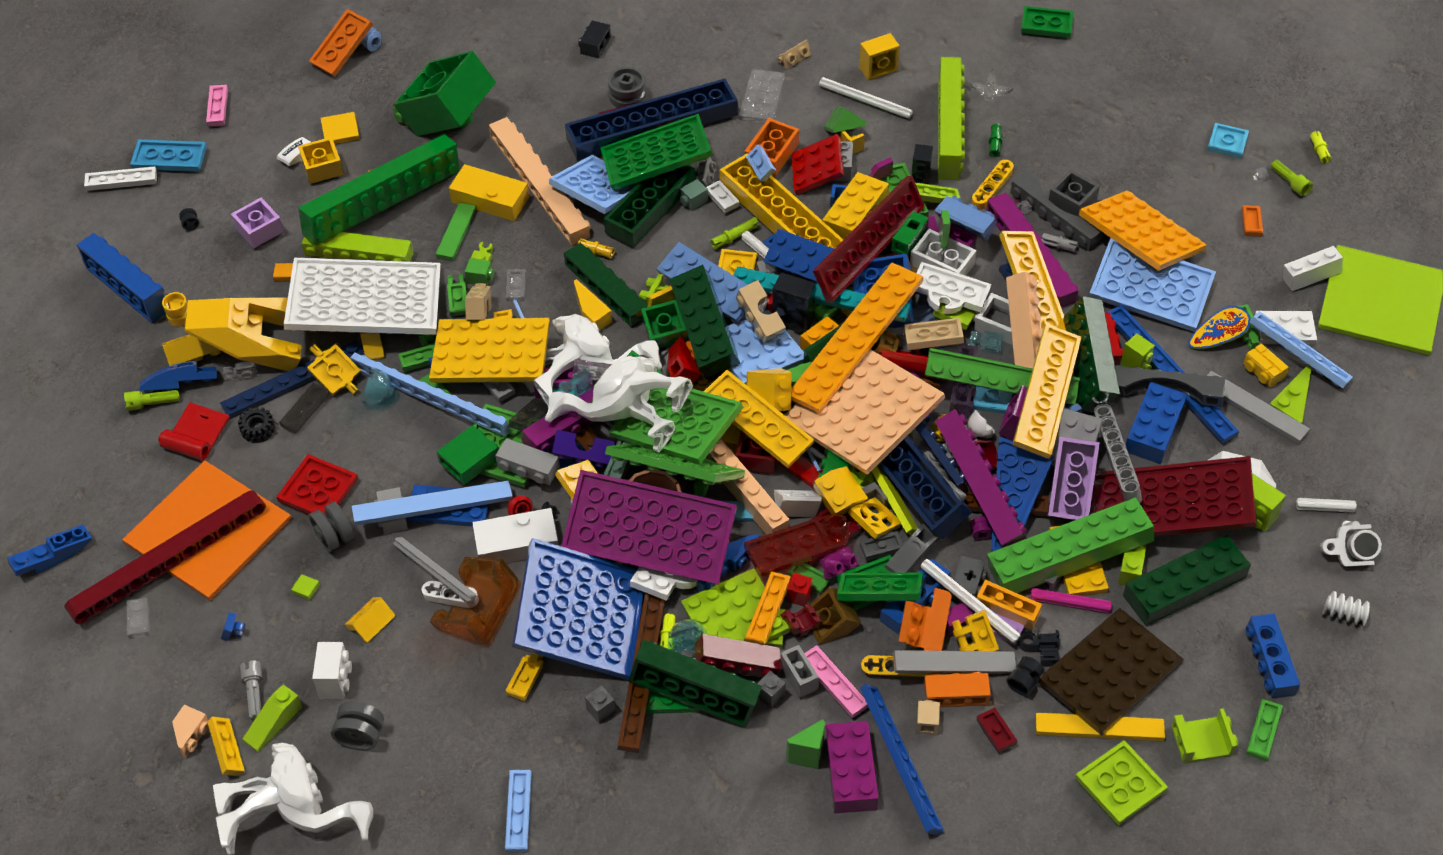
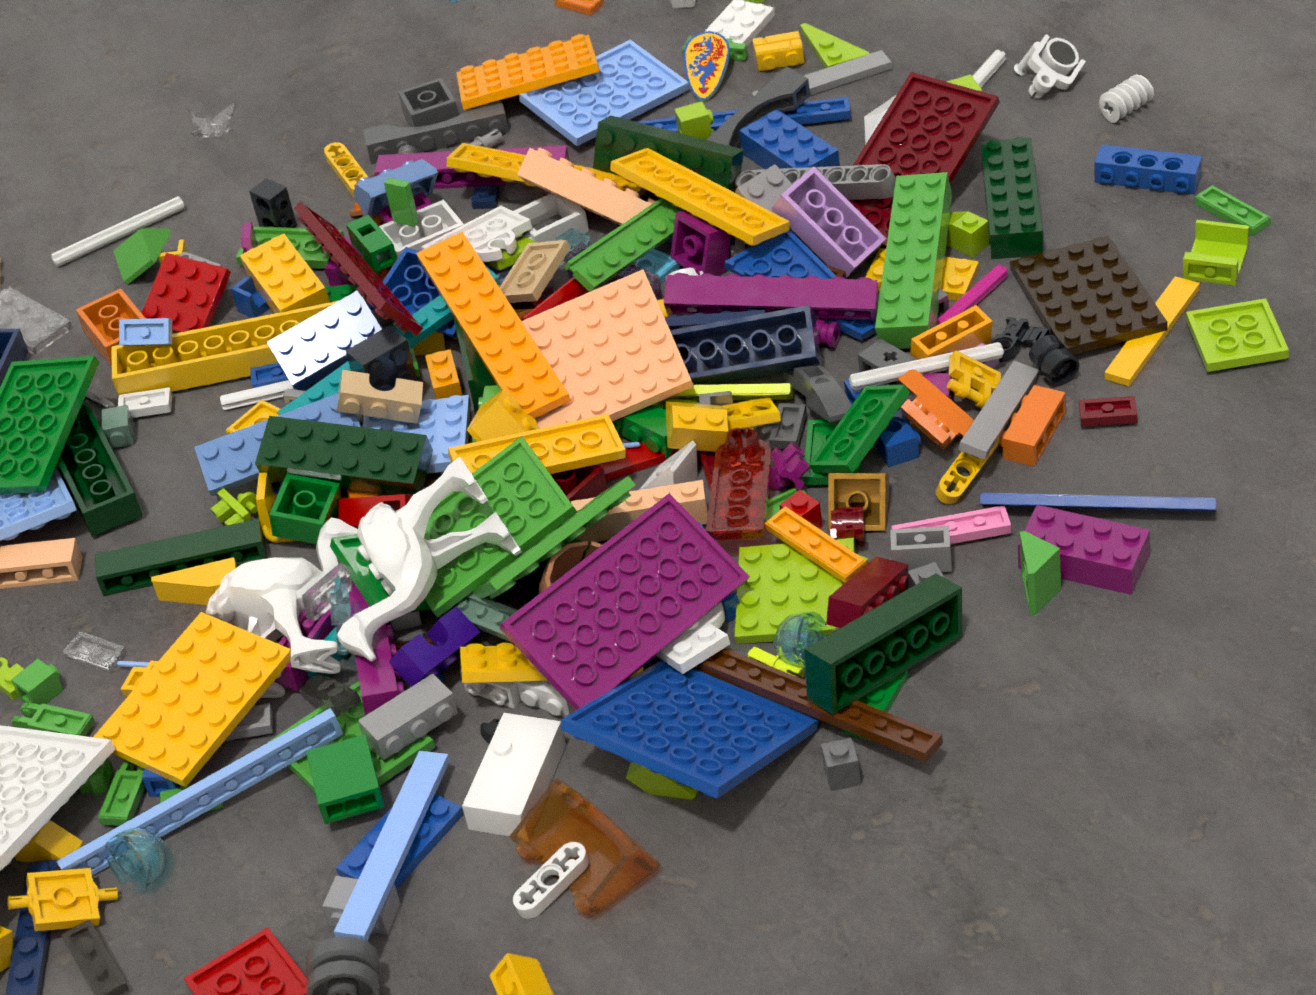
camera: 55 degrees left, 10 degrees down
(435, 570) = (501, 880): light grey axle -> none
(478, 302) = (101, 684): tan arch -> none
(518, 811) = (945, 911): light blue tile -> none
(519, 505) = (466, 756): red cone -> none
(525, 676) = (740, 833): yellow hinge -> none
(598, 249) = (125, 540): yellow pin -> none
(729, 235) = (212, 417): lime pin -> none
(879, 56) = (75, 191): yellow brick -> none
(928, 717) = (1055, 461): tan brick -> none
(935, 193) = (330, 210): lime plate -> none
(950, 119) = (222, 160): lime brick -> none
(995, 140) = (289, 146): green pin -> none
(1047, 22) = (160, 52): green plate -> none
(1302, 350) = (790, 17): light blue plate -> none

